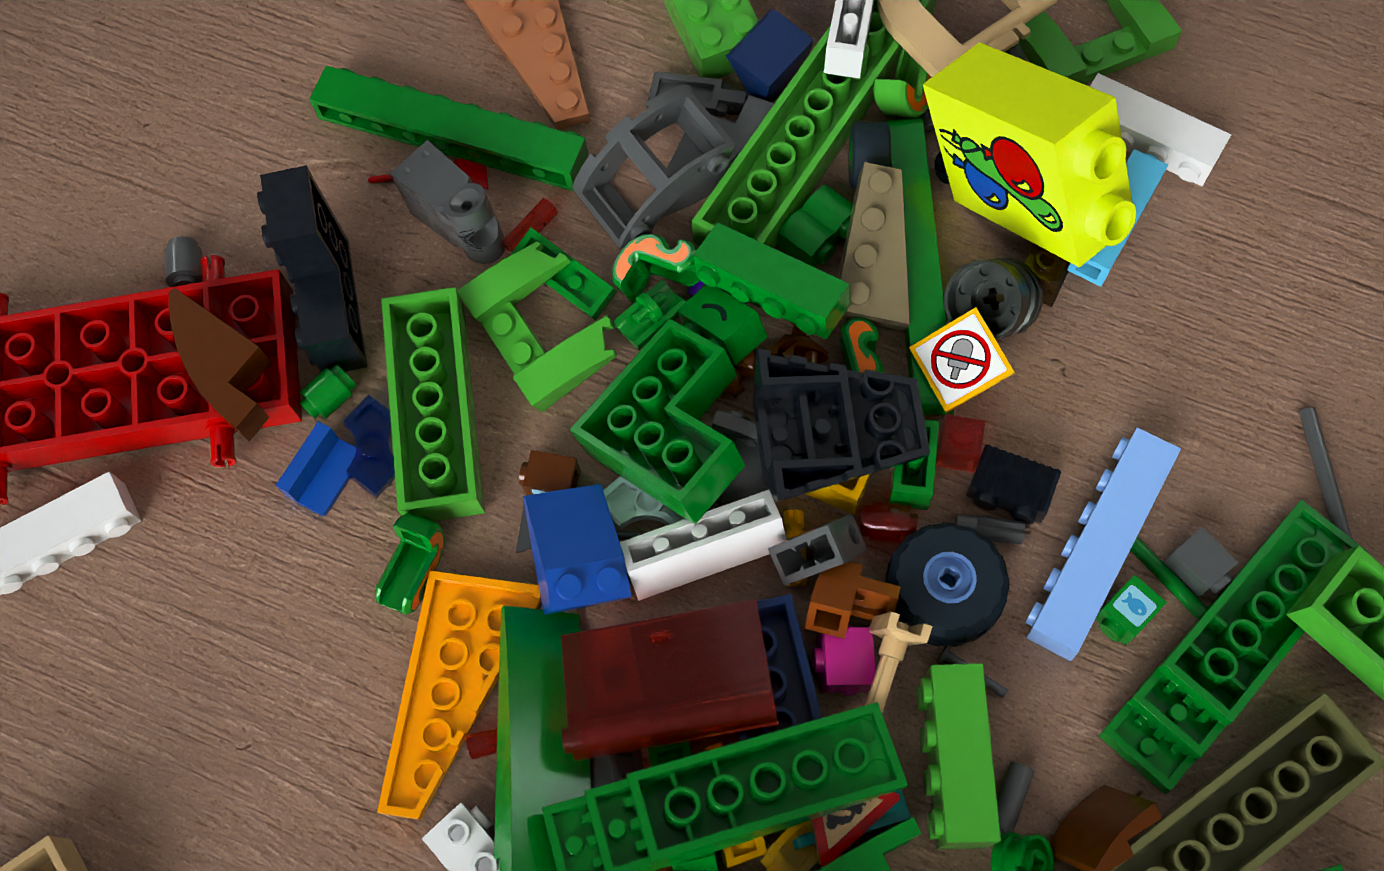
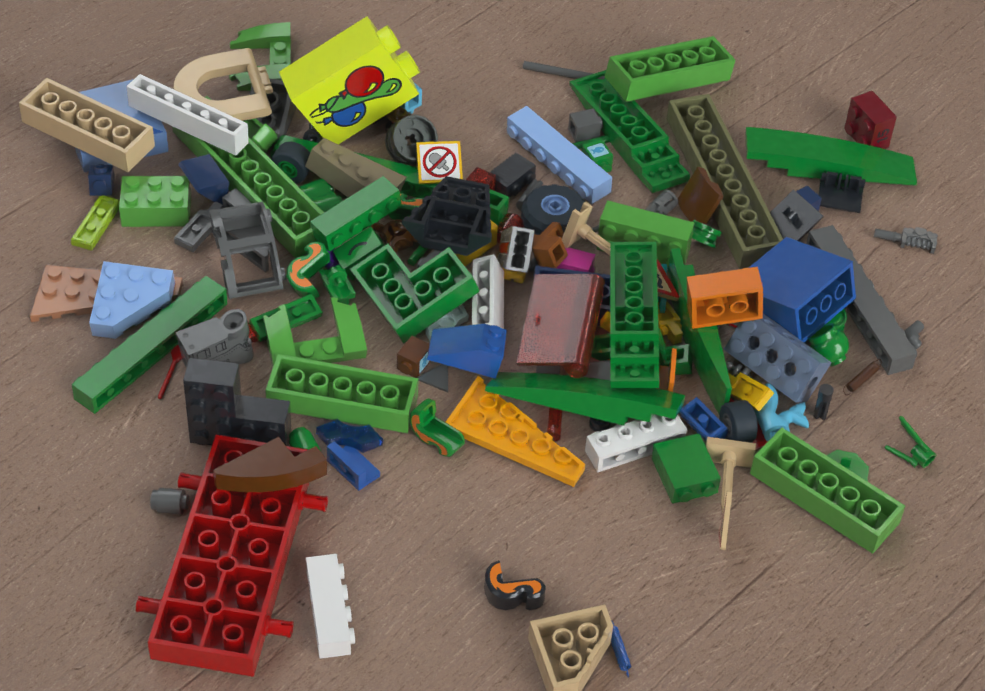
camera: 80 degrees left, 20 degrees down
(132, 783) = (510, 594): none -> black animal
(505, 61) = (128, 297): none -> light blue brick
(1061, 759) = (662, 203): none -> dark grey hinge

